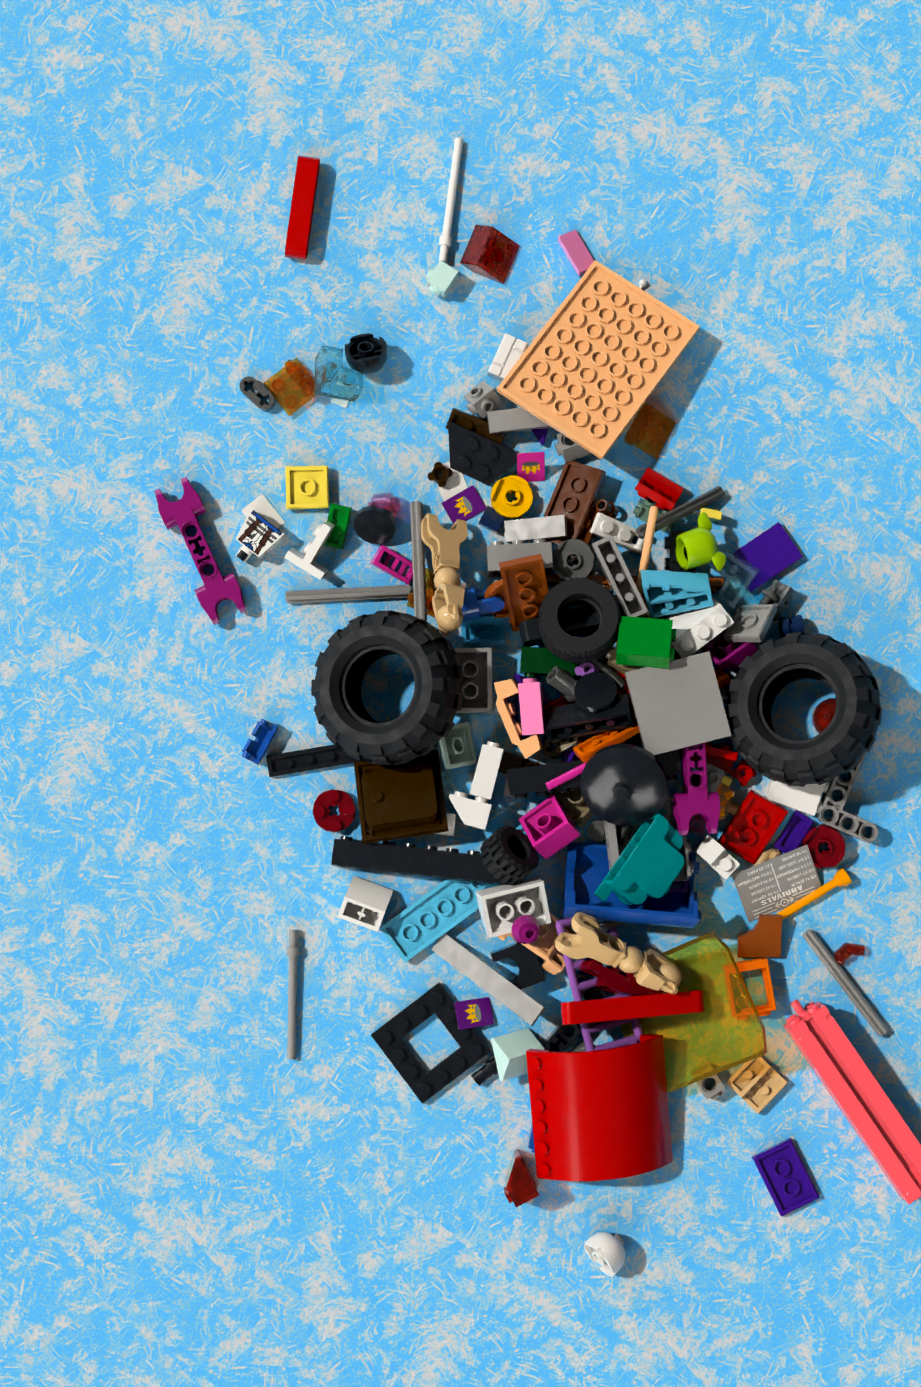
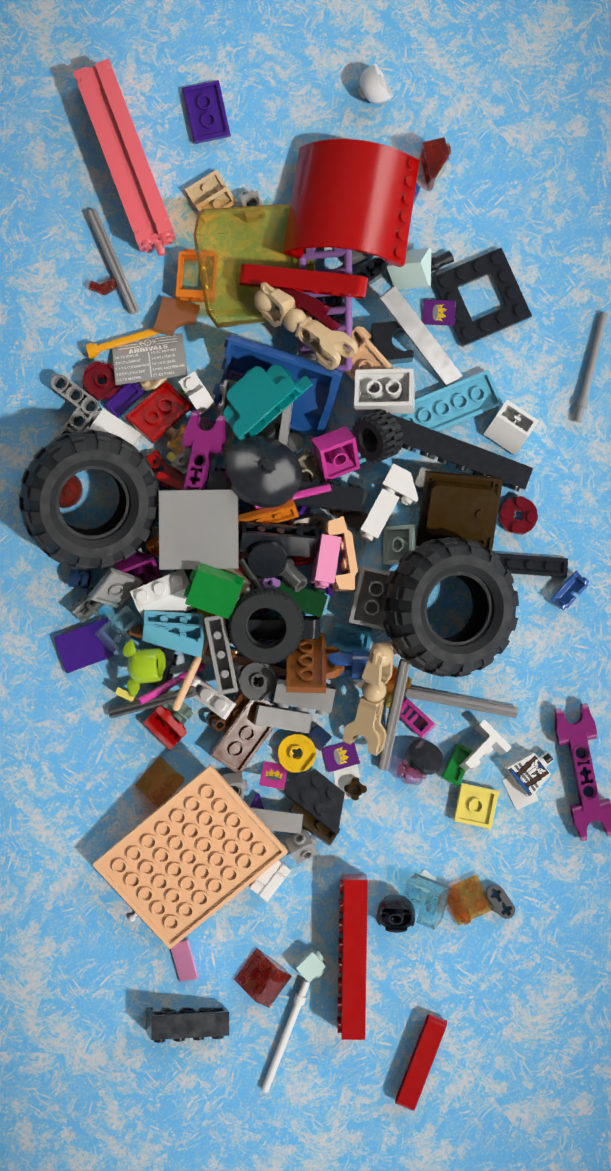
camera: 165 degrees left, 0 degrees up
(399, 294) = (354, 956): none -> red brick
(526, 929) = (379, 367): magenta cone -> none
(557, 187) = (187, 1023): none -> black wedge
(668, 532) = (166, 686): none -> dark pink bar

